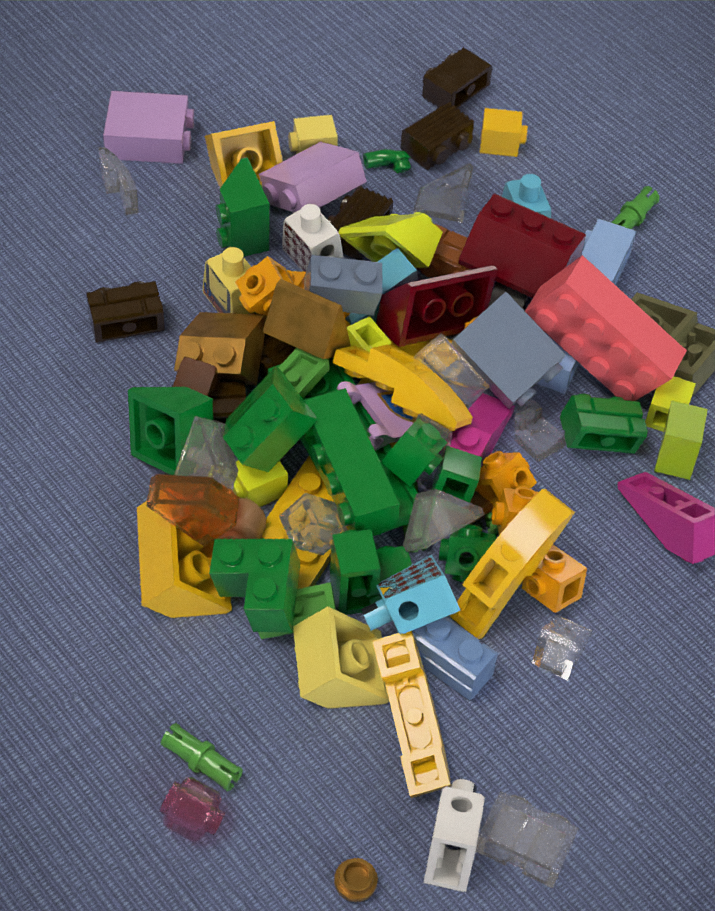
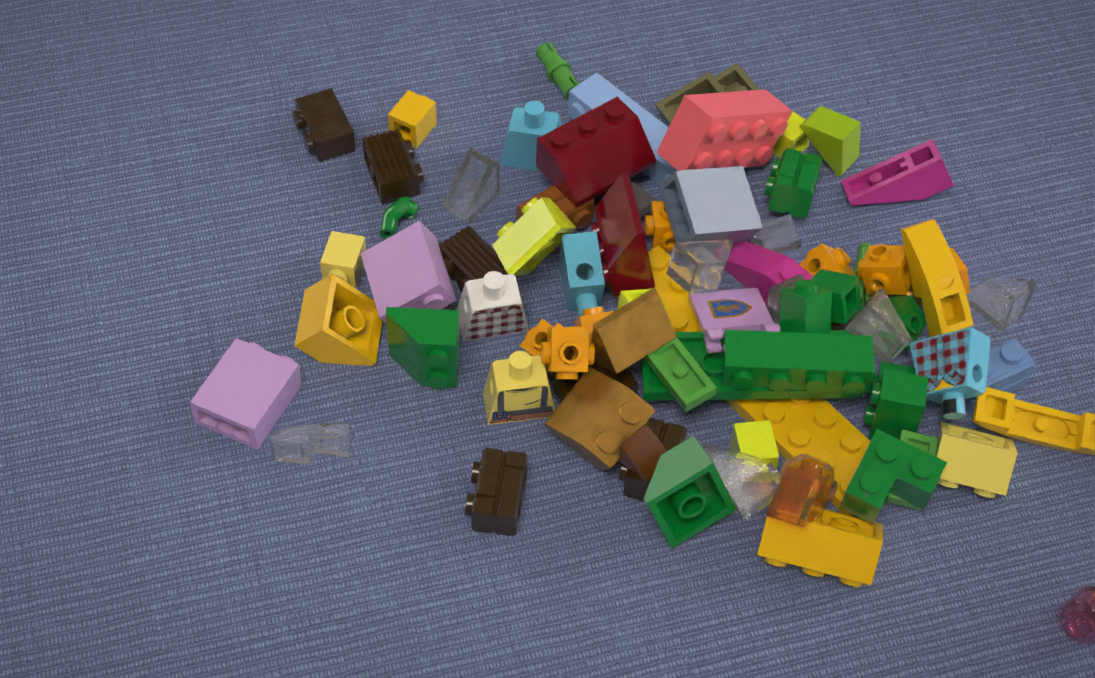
camera: 65 degrees left, 0 degrees up
(201, 757) = (1033, 594): bright green pin -> none
(268, 422) = (729, 404): green slope -> none
(311, 523) = (846, 416): clear brick -> none
(346, 282) = (597, 288): sand blue brick -> none
(413, 383) = (729, 283): yellow slope -> none

